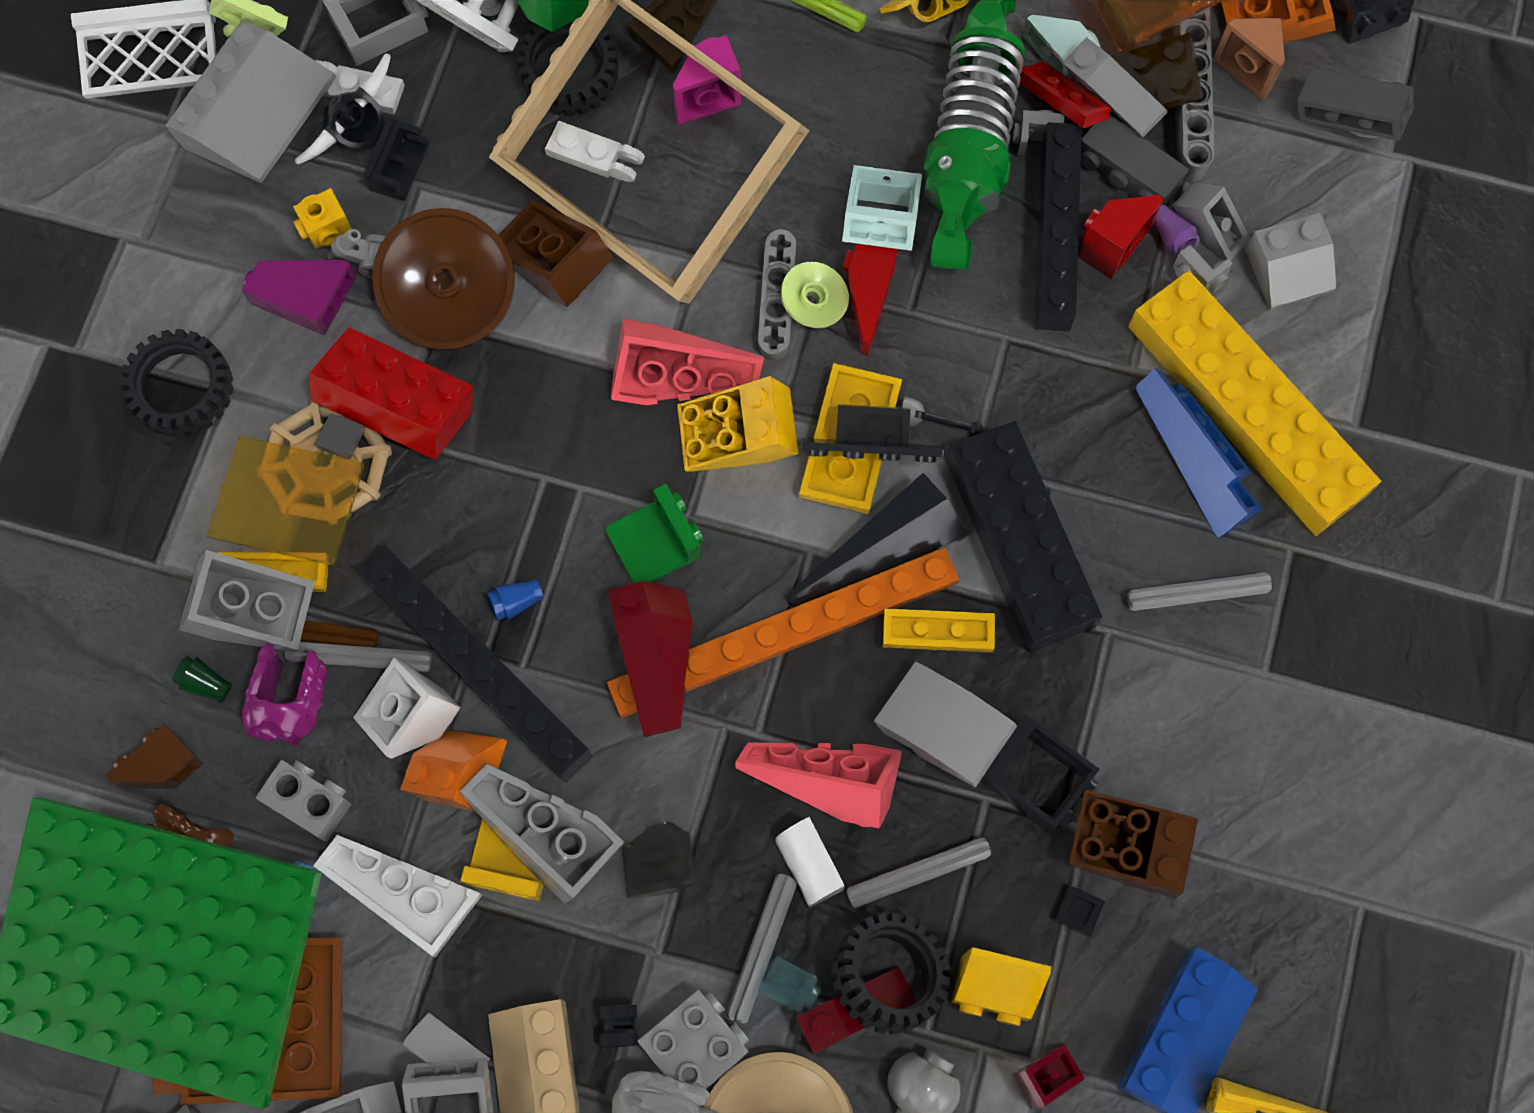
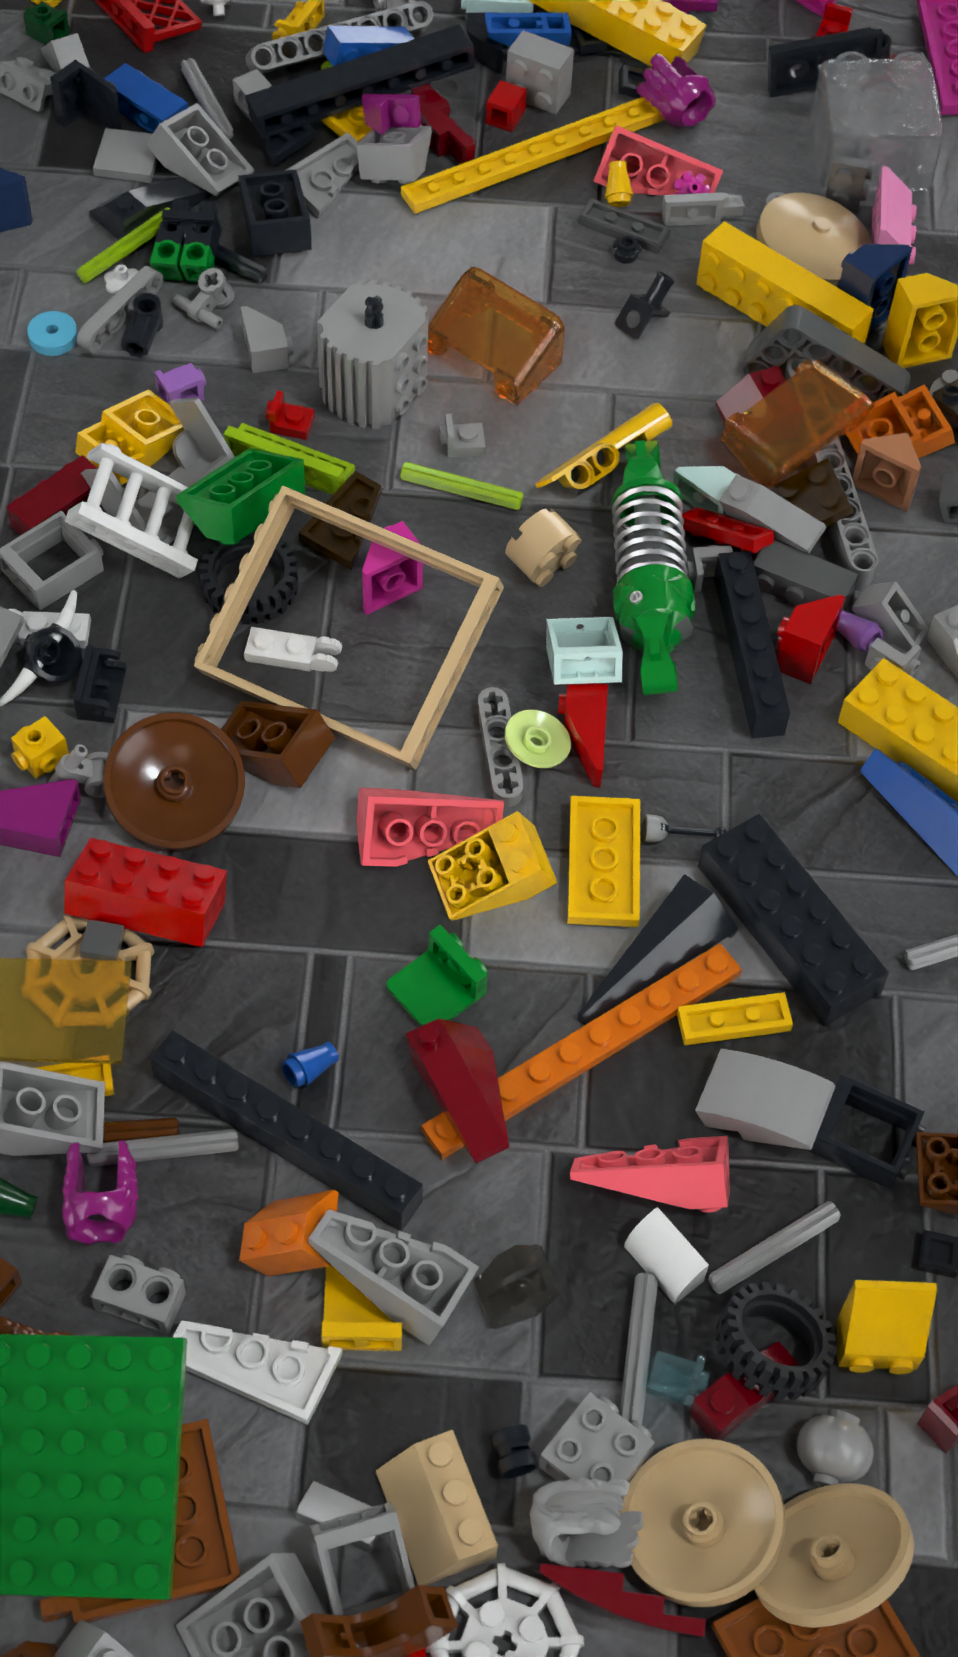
camera: 15 degrees left, 15 degrees down
(405, 710) = (224, 1186): white slope -> none
(870, 82) = (543, 546): none -> tan brick
(872, 430) = (627, 844): black bracket -> none

